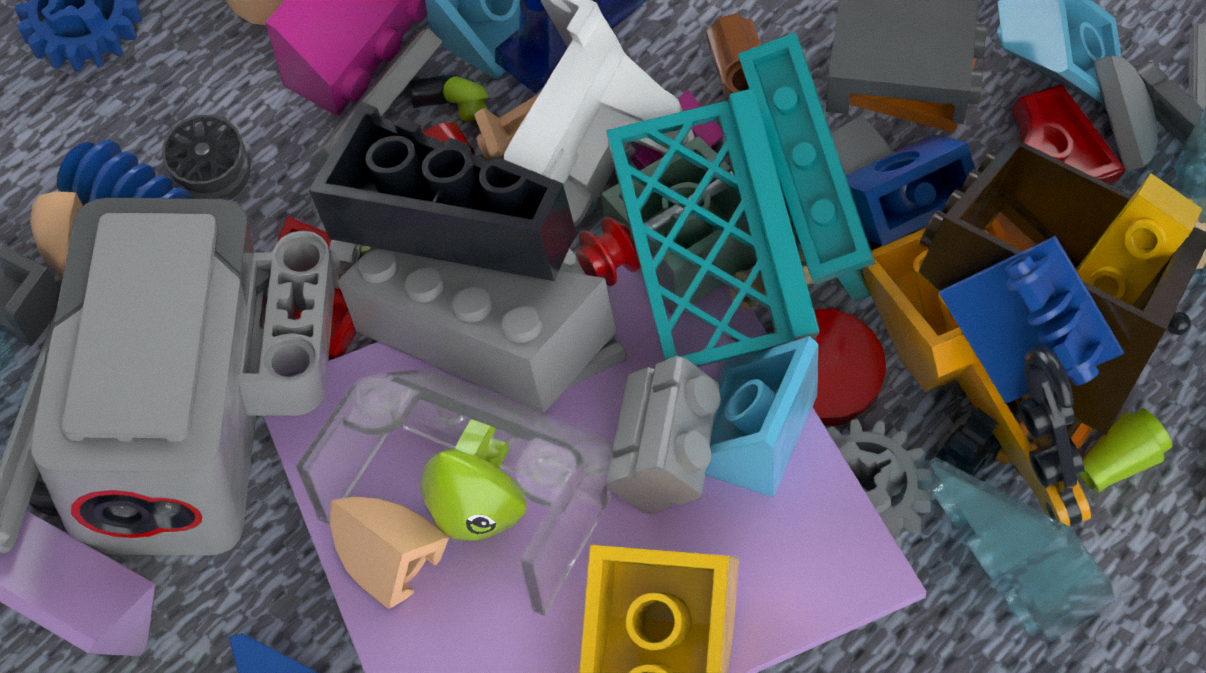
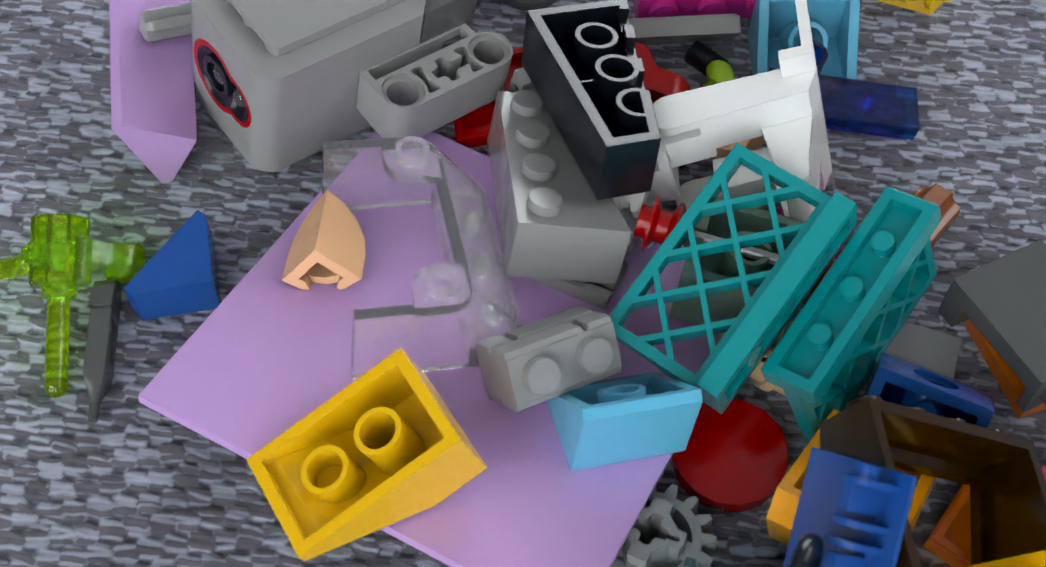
camera: 50 degrees right, 5 degrees down
(468, 489) = (398, 255): lime piece -> none

